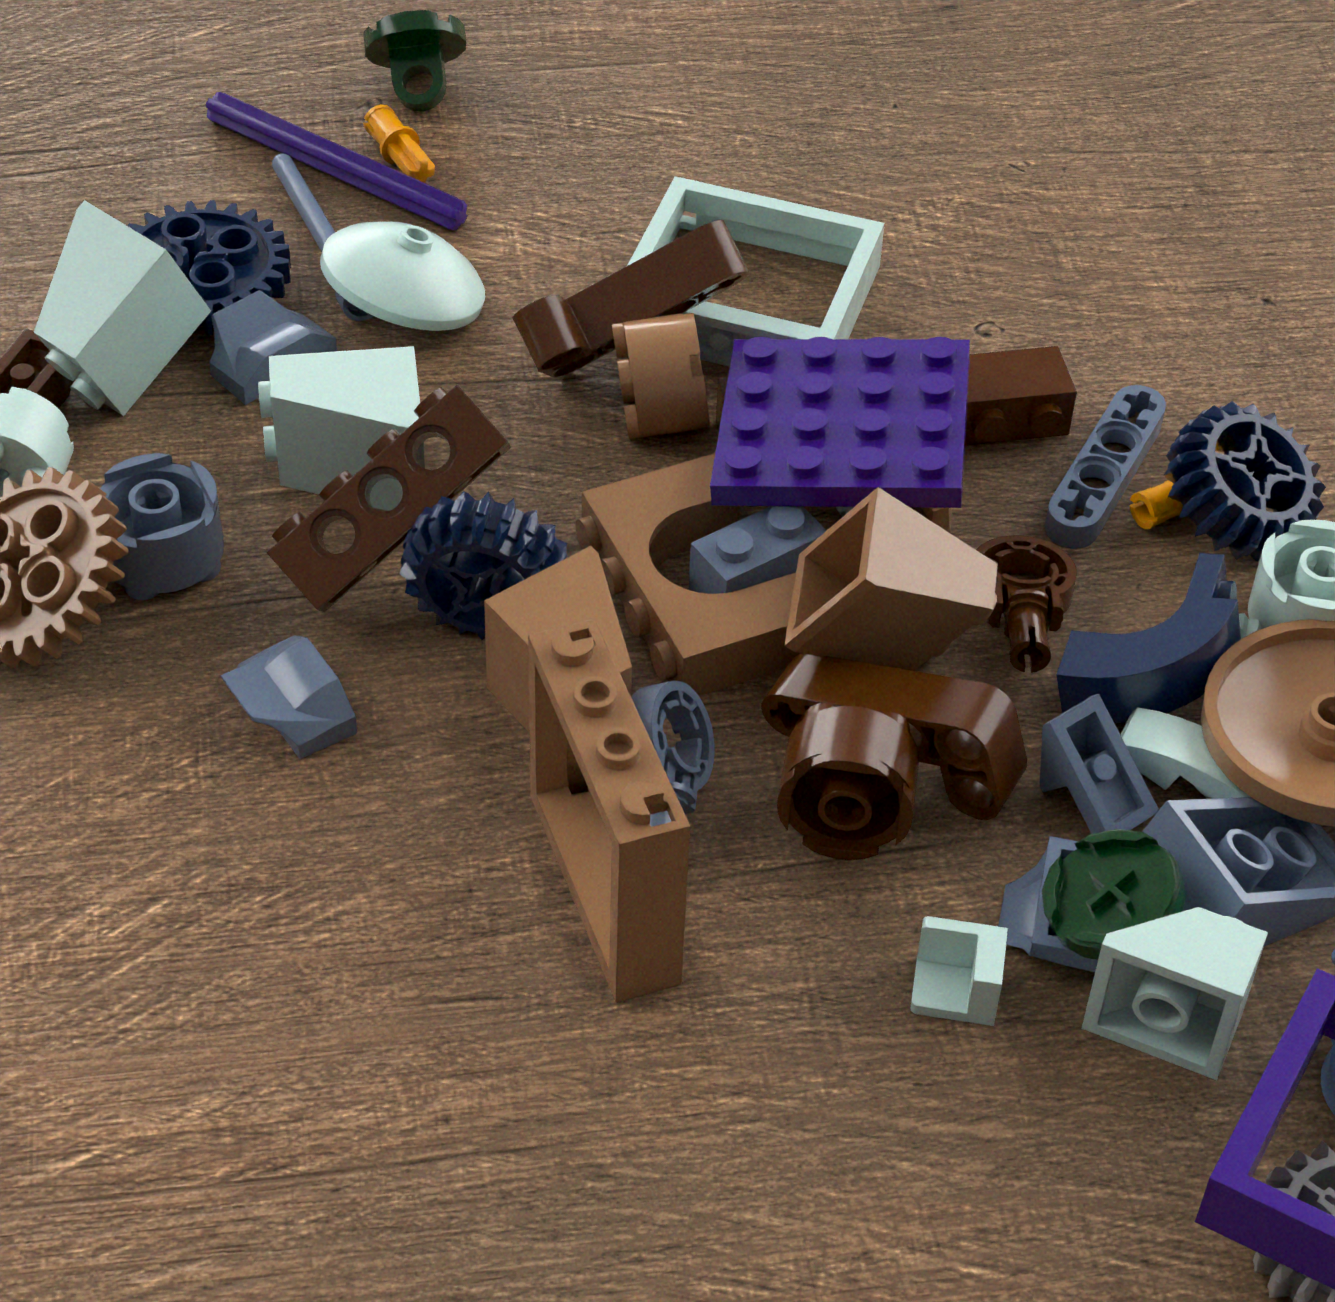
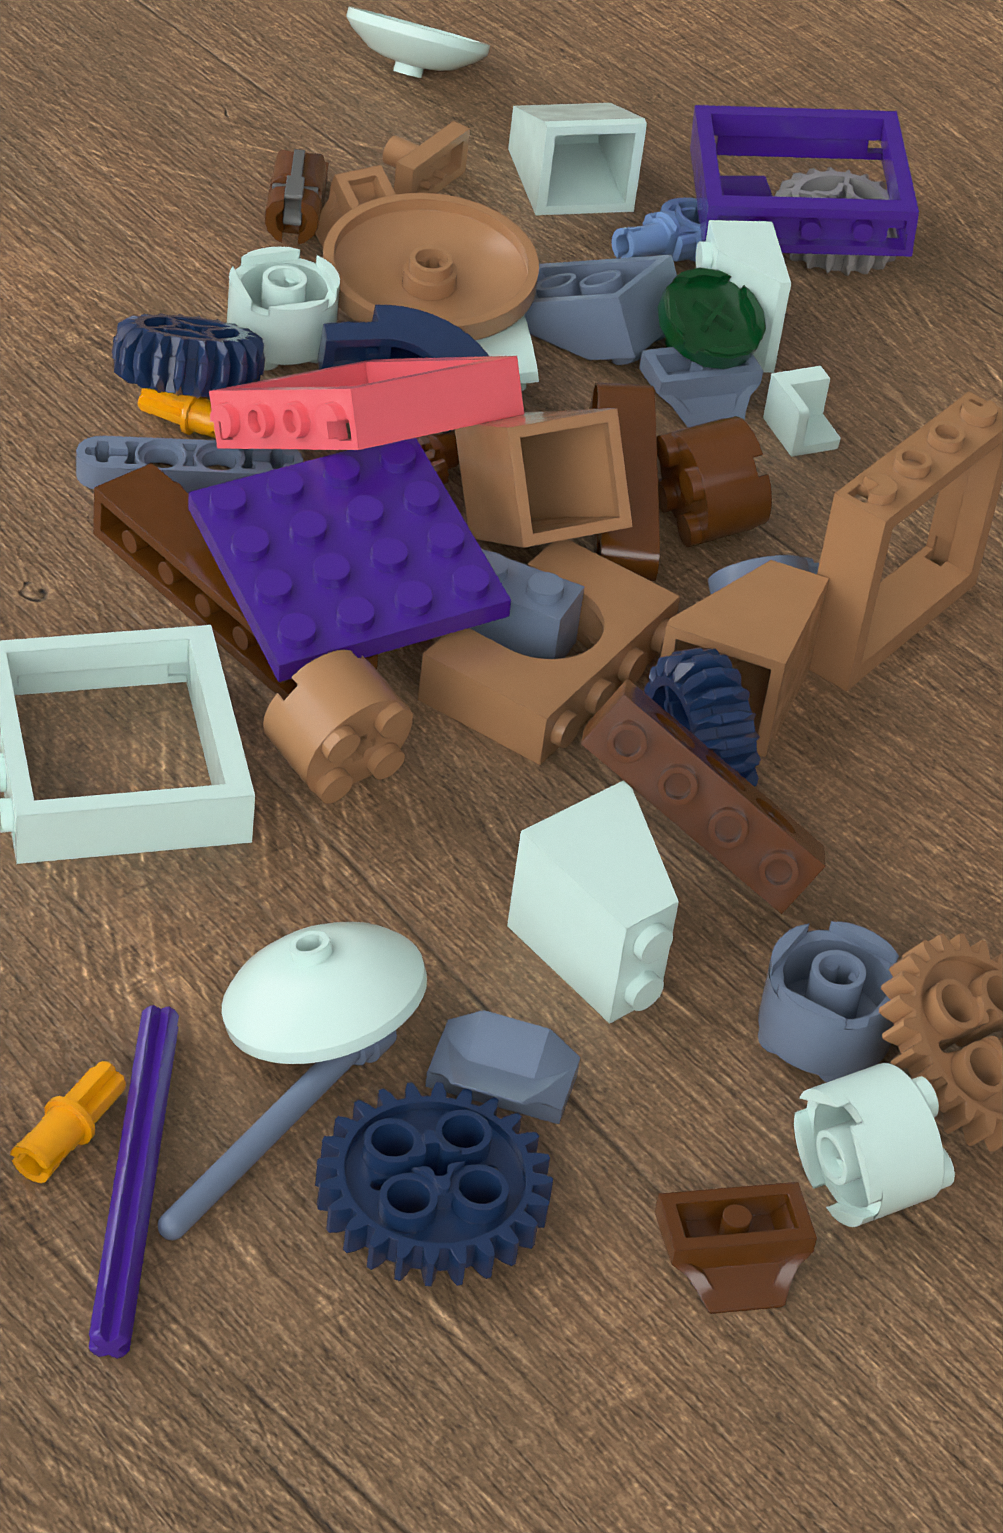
camera: 125 degrees left, 5 degrees down
(115, 310) = (624, 1125): light aqua slope -> none
(295, 694) = (901, 853): sand blue slope -> none
(669, 281) = (280, 743): reddish brown beam -> none
(992, 563) = (377, 397): none -> coral window
(1092, 760) = (565, 383): sand blue slope -> none

